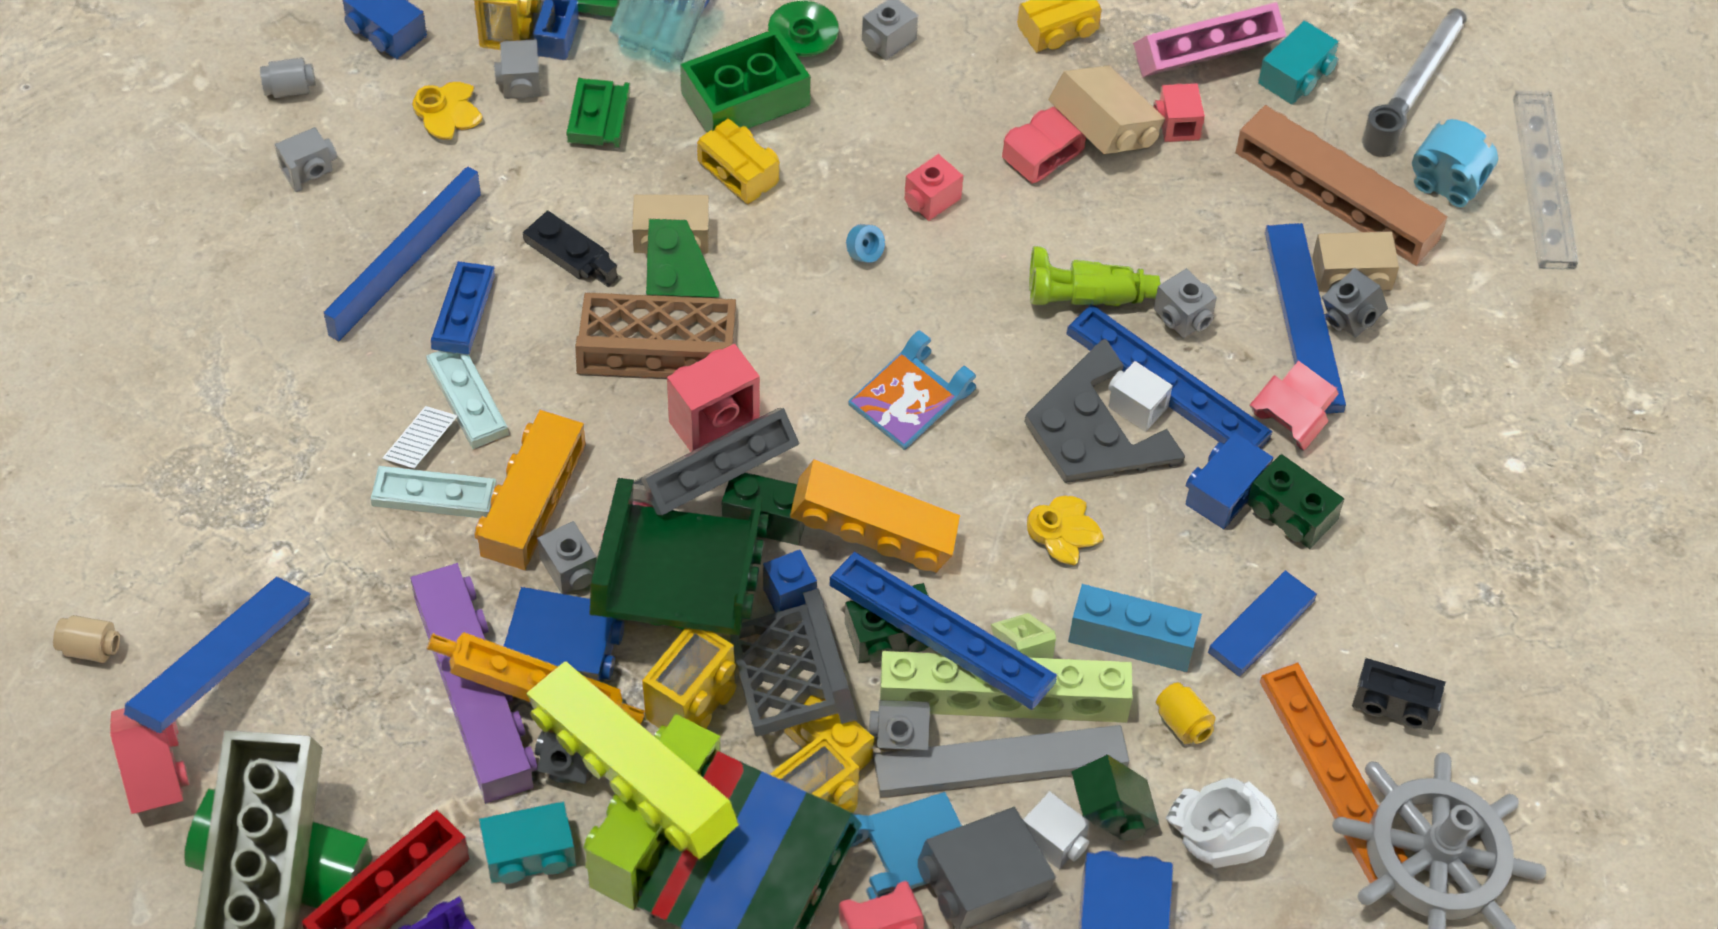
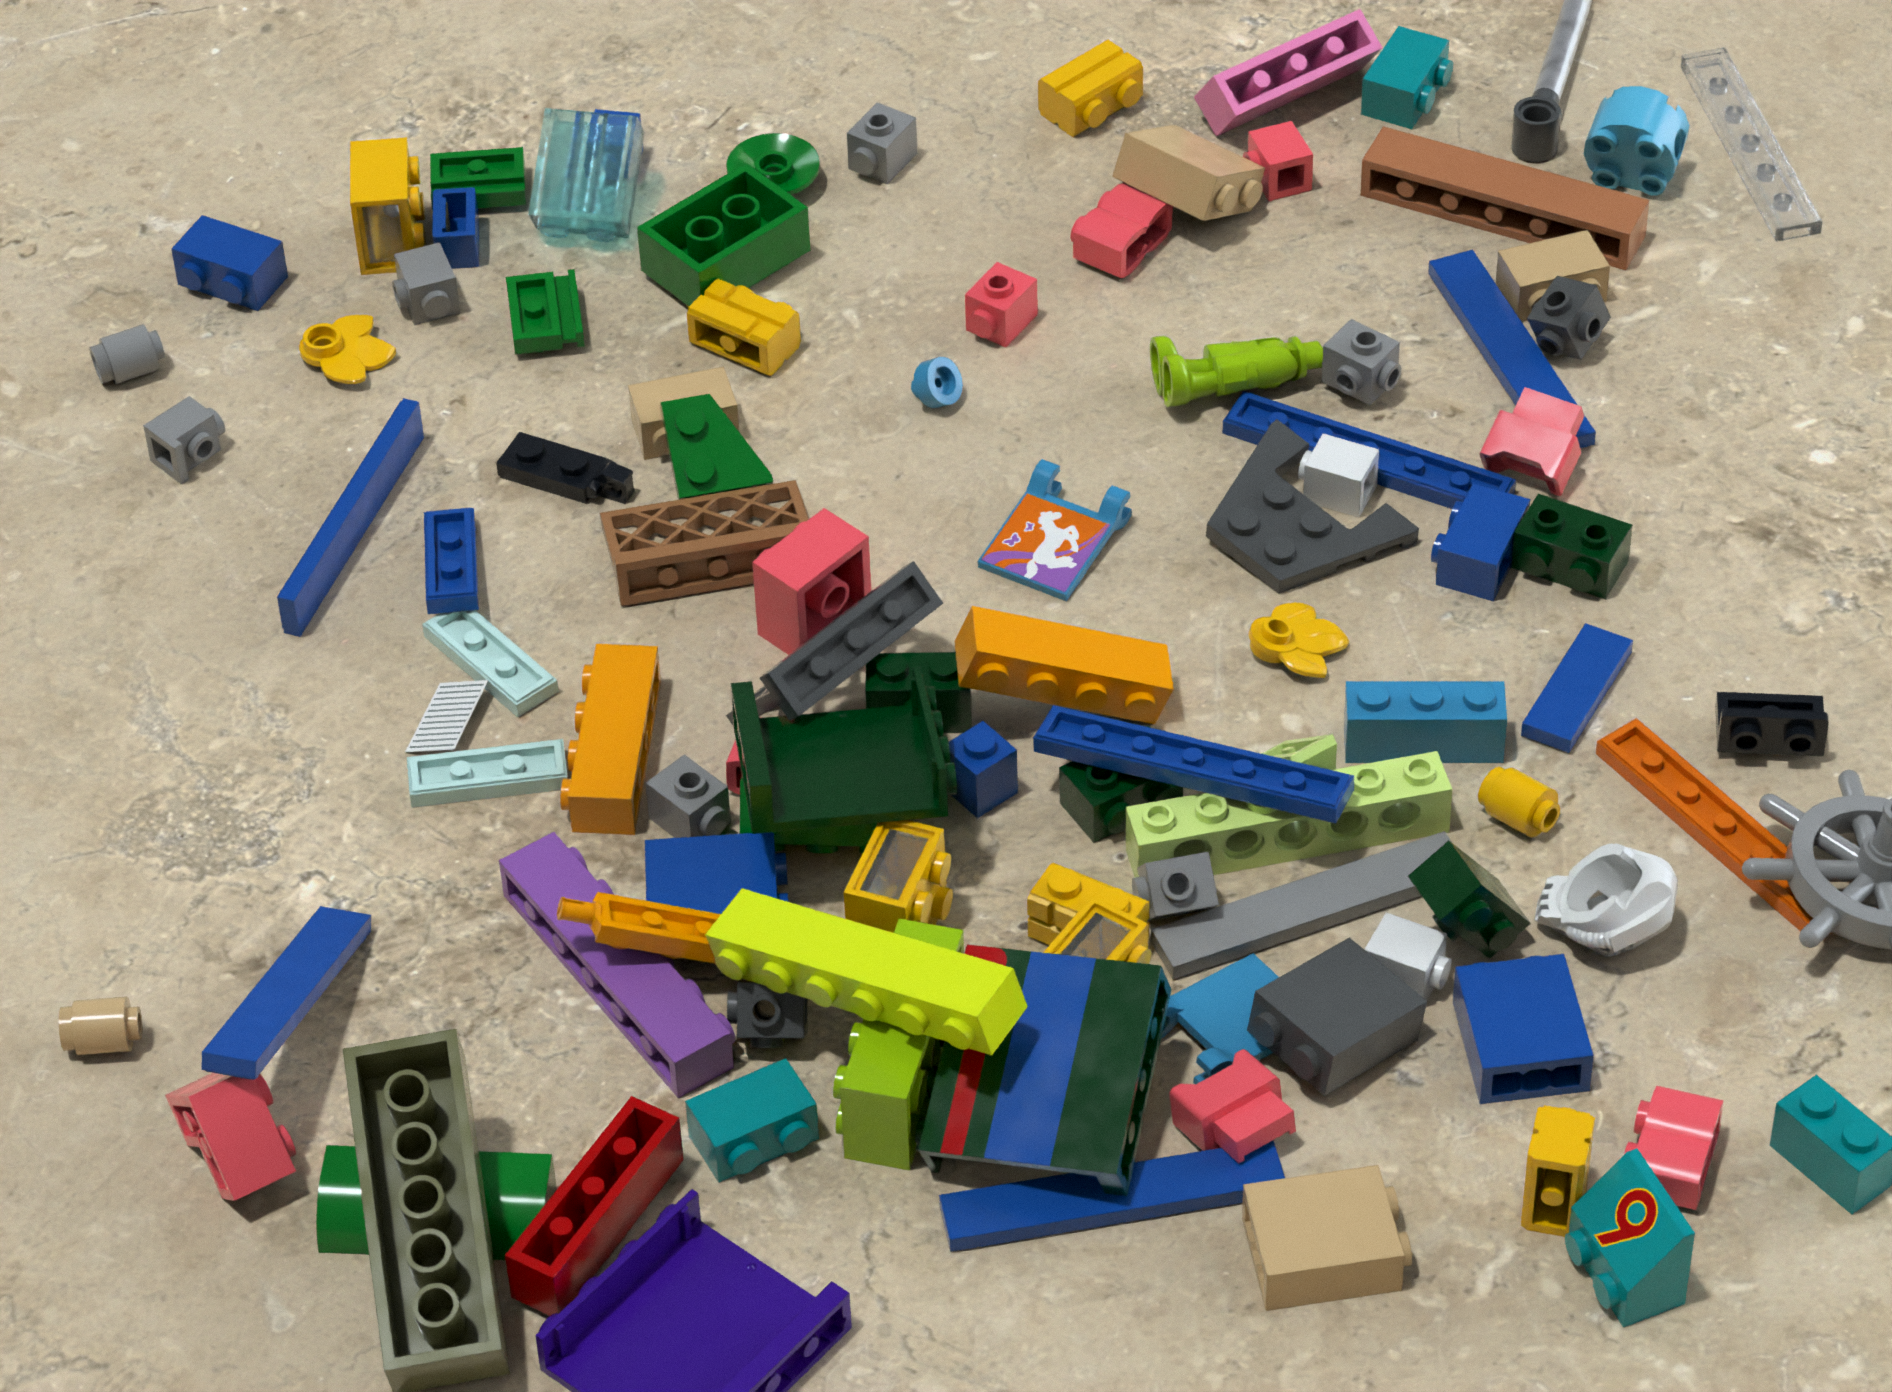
camera: 10 degrees left, 10 degrees down
(826, 668) = (1050, 825): dark grey fence -> none

